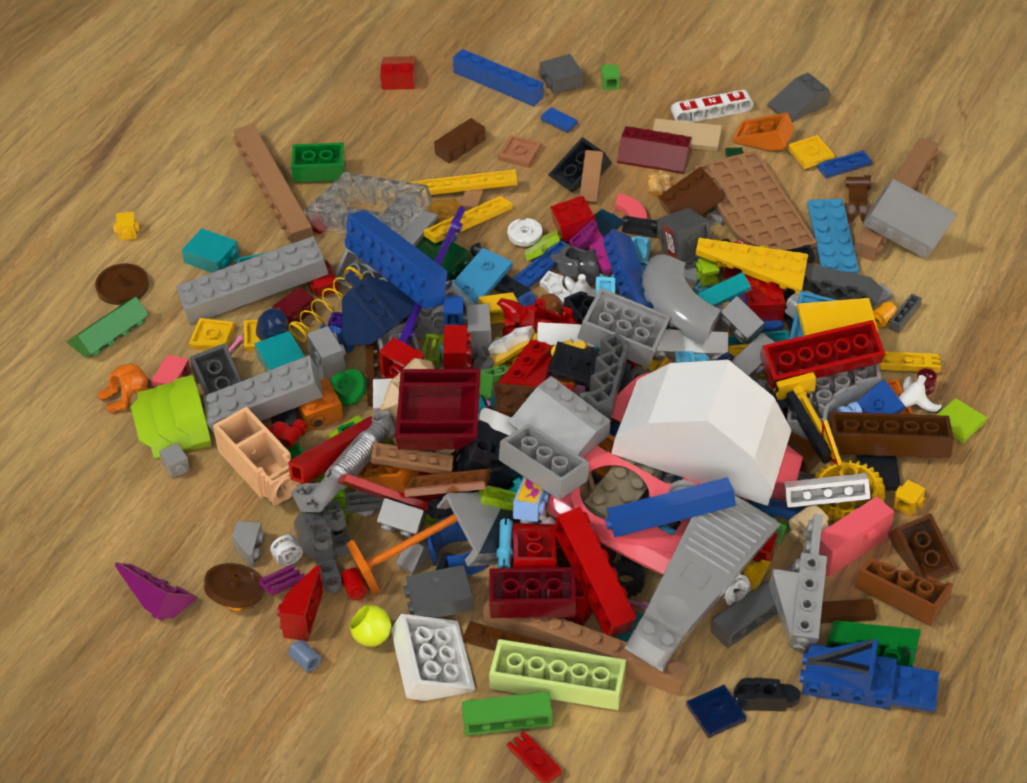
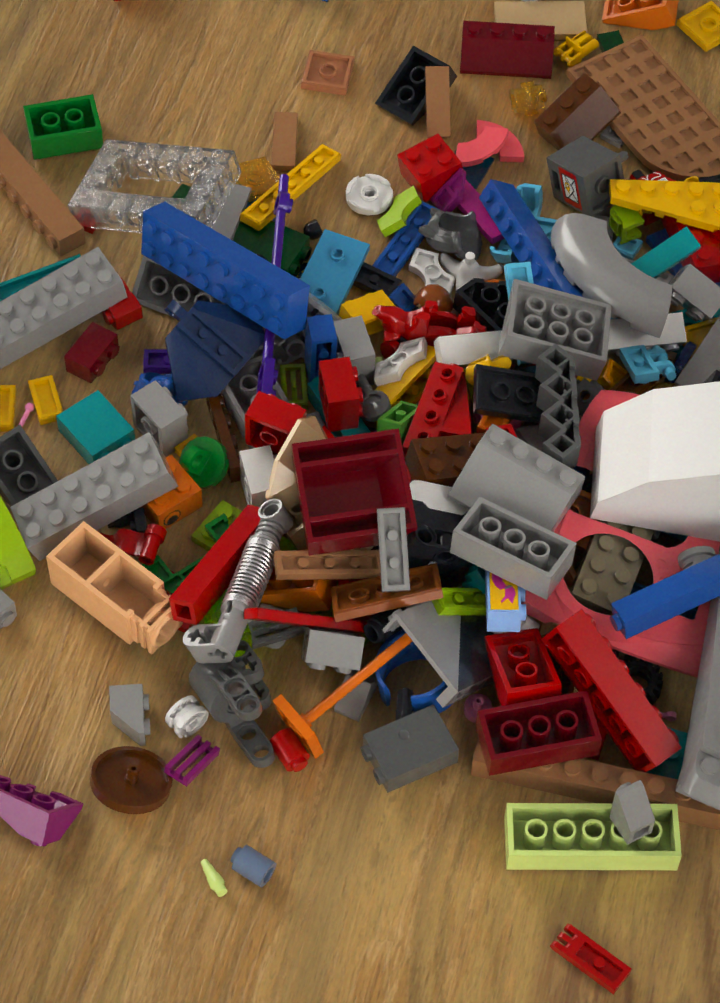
camera: 15 degrees left, 10 degrees up
(271, 323) = (71, 384): dark blue piece -> none
(274, 661) = (214, 879): none -> yellowish green piece
(300, 328) = (112, 384): yellow piece -> none
(301, 606) = (230, 806): red slope -> none
(370, 626) = (331, 809): neon yellow helmet -> none
(431, 657) = (420, 839): white slope -> none
(455, 449) = (393, 549): none -> light grey tile
(459, 140) = (245, 68): reddish brown brick -> none
(470, 182) = (271, 130): yellow tile -> none
(487, 636) = (494, 796): reddish brown plate -> none
(504, 552) = (487, 681): medium azure pin -> none
(507, 713) = (541, 902): bright green brick -> none
(559, 120) = (367, 18): blue tile -> none
(586, 655) = (632, 812): none -> light grey slope
(621, 208) = (482, 147): none -> coral tile
(640, 226) = (518, 165): black hinge -> none
(706, 154) = (576, 49): none -> yellow arm

